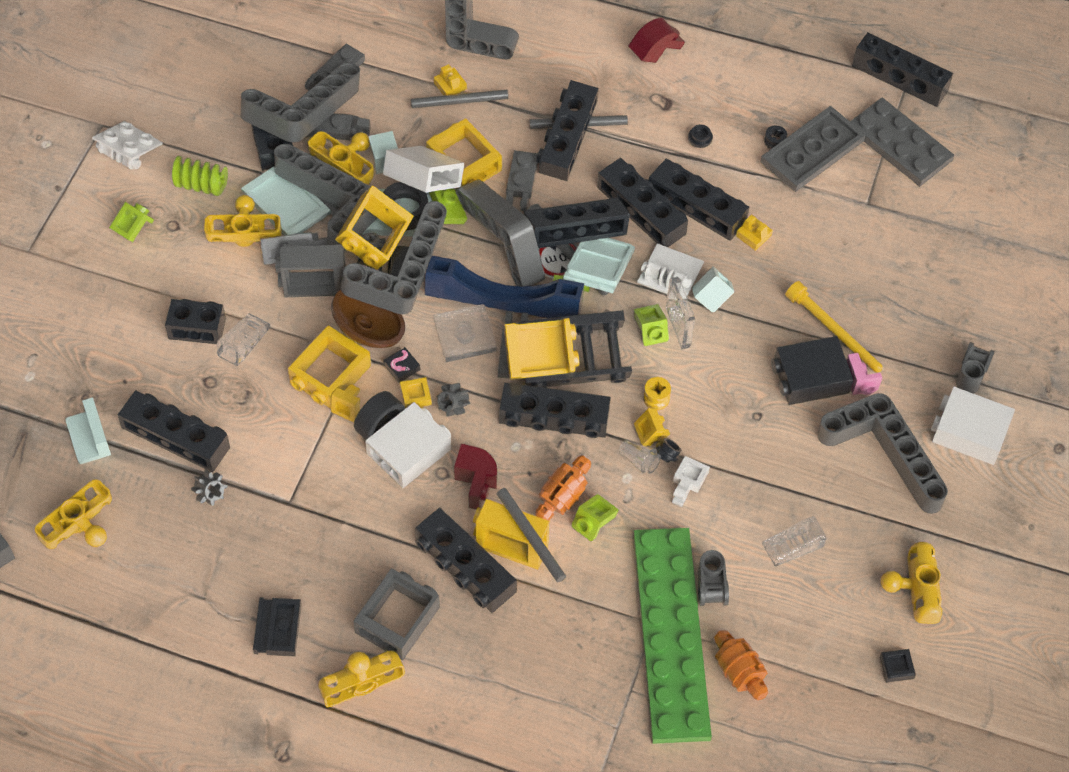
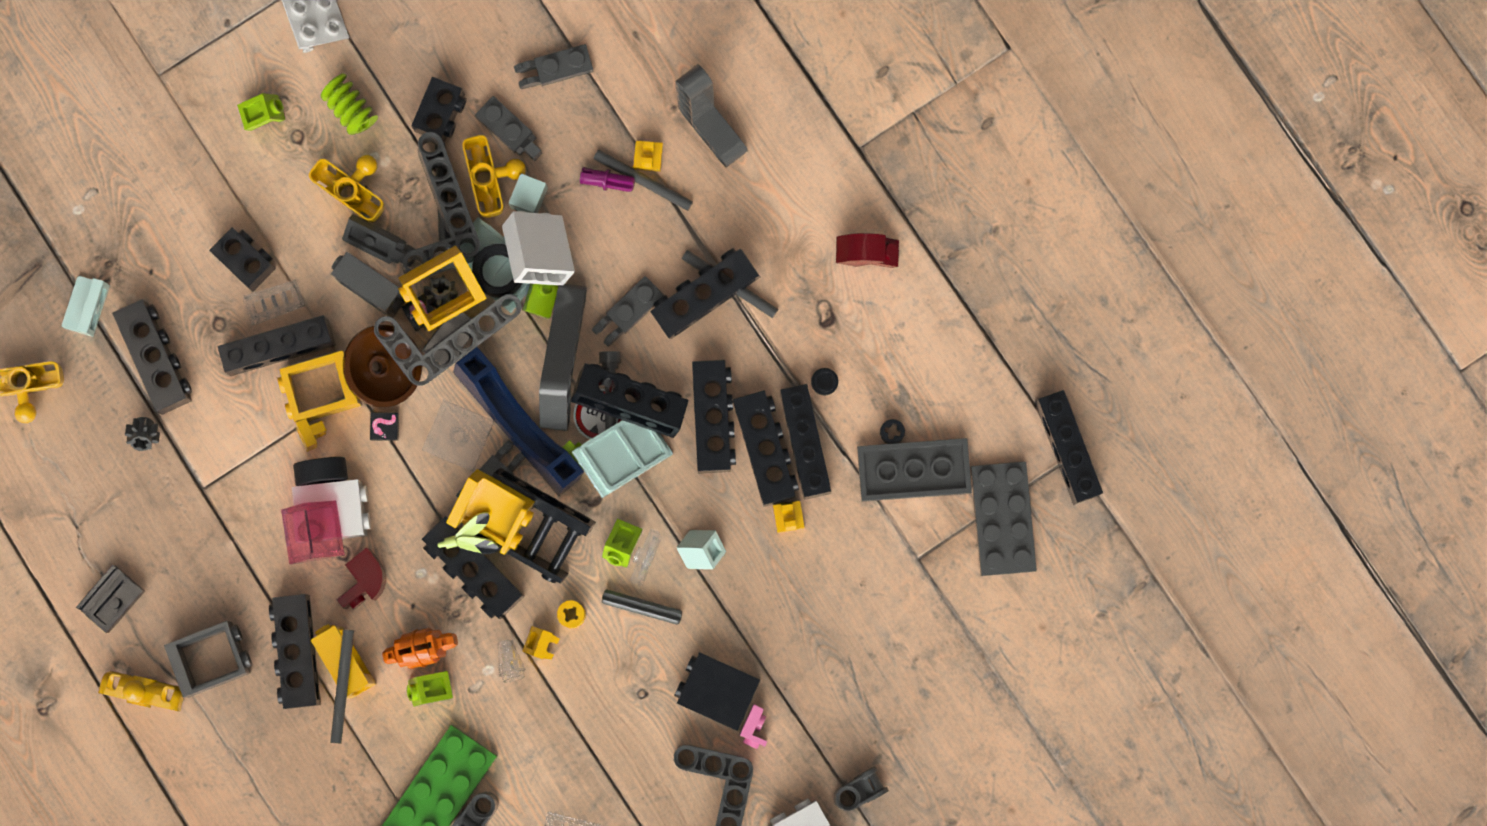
camera: 40 degrees right, 25 degrees up
(270, 360) = (276, 345): none -> black brick
(294, 205) = (405, 186): light aqua piece -> none
(302, 117) = (489, 103): dark grey beam -> none
(408, 457) = (312, 531): none -> clear pink slope
(415, 391) = (369, 468): yellow tile -> none
(433, 111) = (607, 179): none -> magenta axle
(453, 399) = (396, 496): dark grey gear -> none
(480, 169) = (597, 277): yellow window -> none
(536, 384) = (466, 536): none -> yellowish green piece
(666, 264) = (682, 502): white hinge -> none
(668, 450) = (536, 674): black plate -> none
(688, 477) = (534, 711): white plate -> none
(704, 356) = (641, 607): none -> dark grey axle
(724, 173) = (805, 441): none -> black brick
(798, 293) = (772, 609): yellow piece -> none

